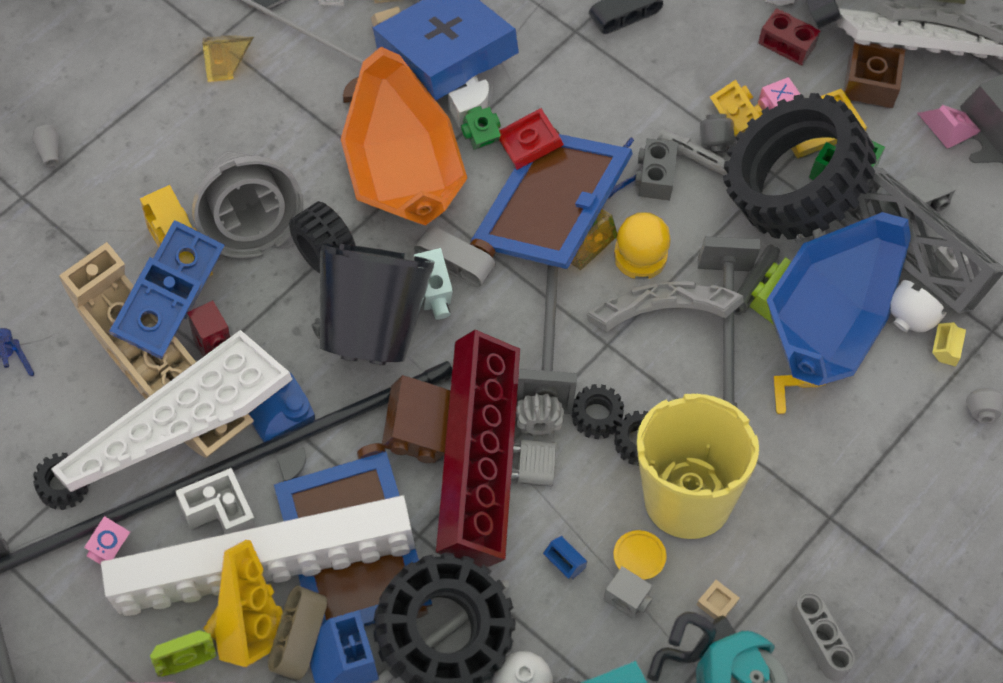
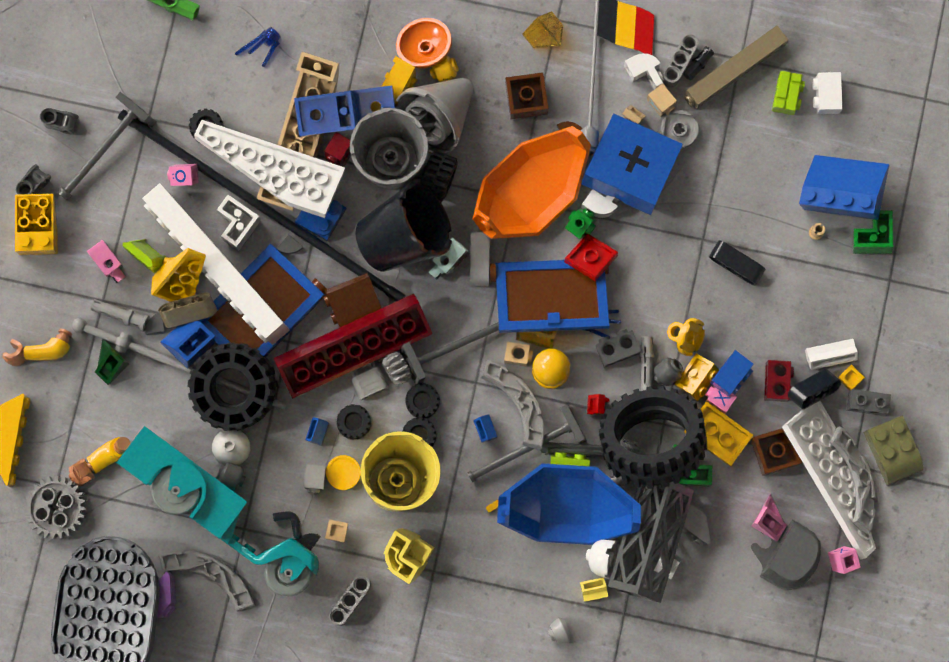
camera: 65 degrees right, 20 degrees up
(142, 170) = (423, 35): none -> orange dish
(189, 172) = (445, 70): none -> yellow head
(258, 257) = (386, 135): none -> light grey cone
(287, 104) = (526, 95): none -> reddish brown brick
(580, 491) = (345, 413): none -> black tyre
(599, 285) = (511, 348): none -> tan brick
(675, 351) = (485, 428): none -> blue piece
(686, 90) = (689, 337): none -> yellow tile
(713, 223) = (596, 404): none -> red tile
(758, 63) = (734, 370): none -> blue brick
(799, 528) = (407, 554): none -> light yellow brick

